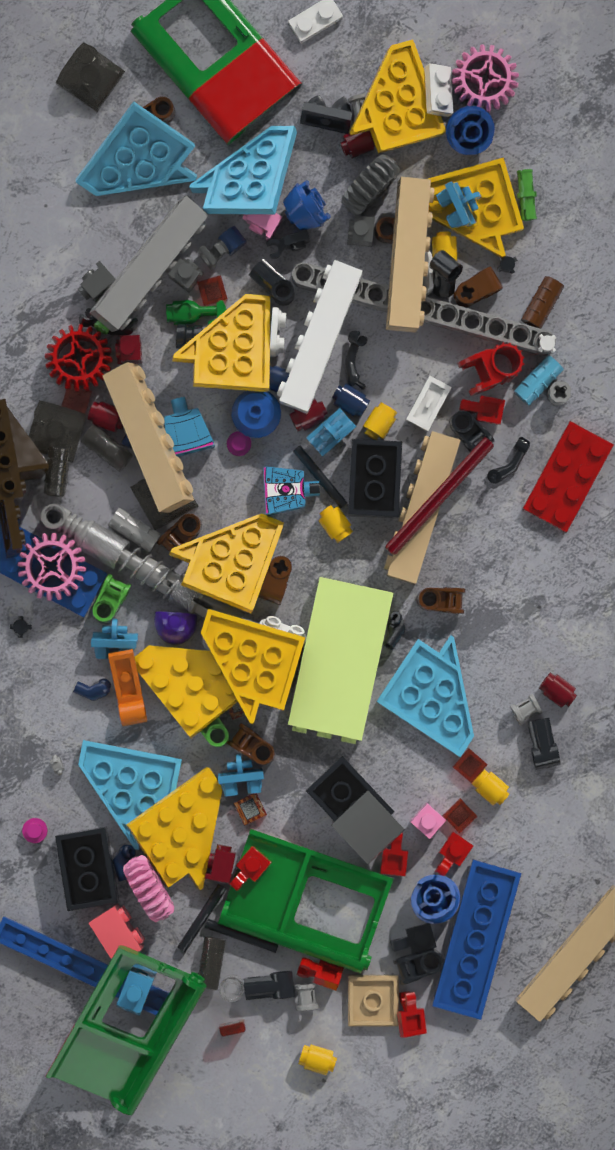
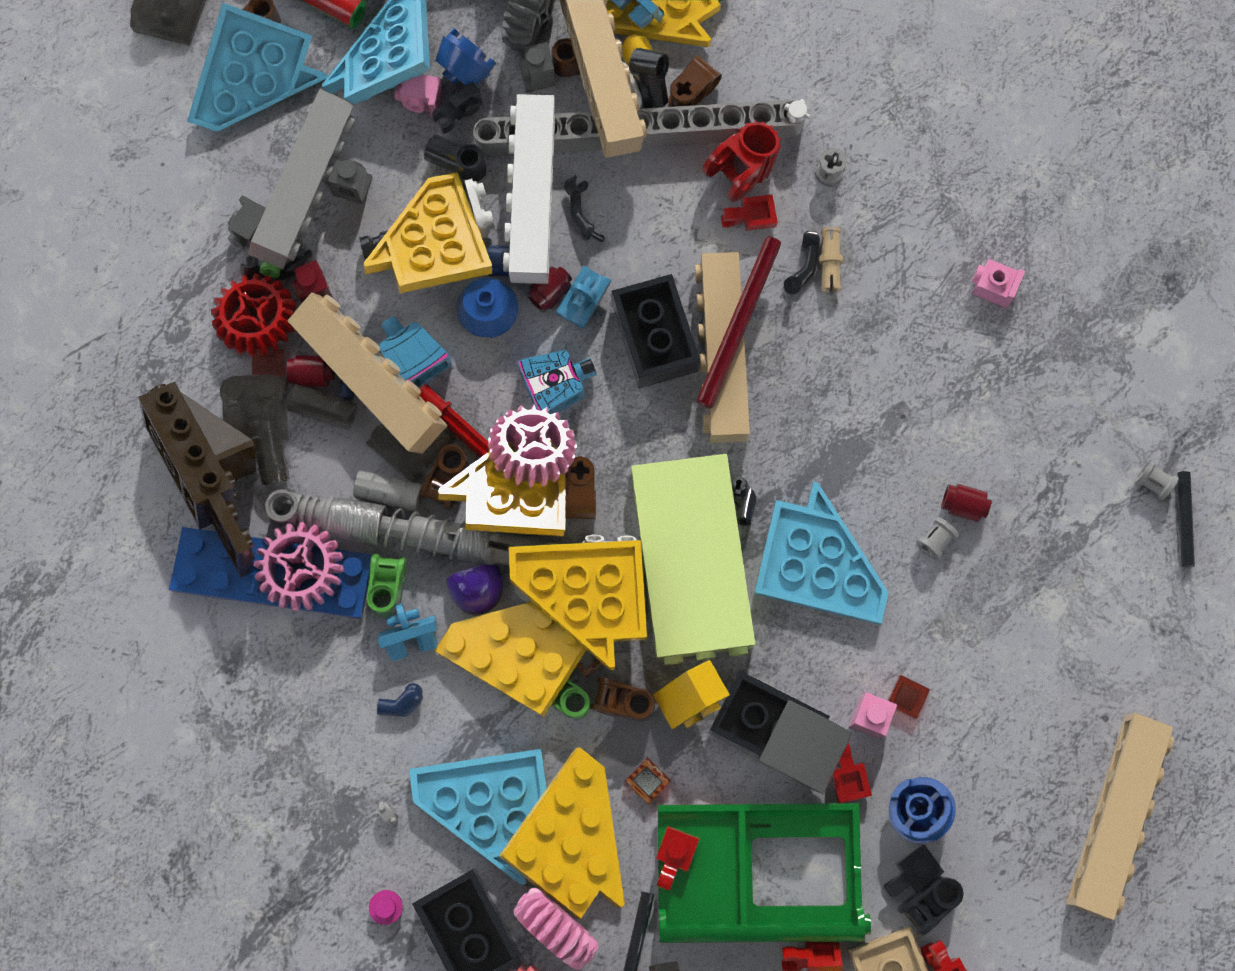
camera: 20 degrees left, 10 degrees down
(20, 626) = (286, 657): black piece -> none
(122, 857) = (508, 901): dark blue arm -> none
(127, 687) = (443, 683): orange plate -> none
(189, 311) = (370, 221): green piece -> none
(202, 495) = (456, 423): none -> red axle
(212, 290) = (388, 191): clear red tile -> none
(214, 926) = (657, 948): black bar -> none
(221, 864) = (637, 864): dark red brick -> none
(228, 242) = (388, 130): leg -> none
(230, 779) = (610, 755): dark azure hips -> none
(238, 444) = (479, 350): magenta plate -> none
(242, 520) = (534, 456): none -> bright pink gear
(302, 762) = (691, 696): none -> yellow brick
(320, 476) = (585, 353): black bar -> none
(335, 523) = (627, 400): yellow brick -> none
(350, 400) = (593, 254): dark blue brick -> none
(379, 421) = (636, 265): yellow brick -> none
(428, 403) = (685, 229): white plate -> none
(443, 600) = (792, 443): reddish brown piece -> none
(454, 851) = (919, 743): red plate -> none
(469, 765) = (896, 631): clear red tile -> none
(471, 433) = (748, 243): black piece -> none
(476, 939) = (990, 845): blue plate -> none
(491, 787) = (933, 647): yellow brick -> none
(507, 264) = (716, 52): black piece -> none
(530, 467) = (831, 259): none -> tan pin
(538, 380) = (801, 161): medium azure axle -> none
(542, 302) = (773, 73): reddish brown axle -> none
(544, 750) = (978, 579): black piece -> none
(568, 476) = (877, 257): red plate -> none

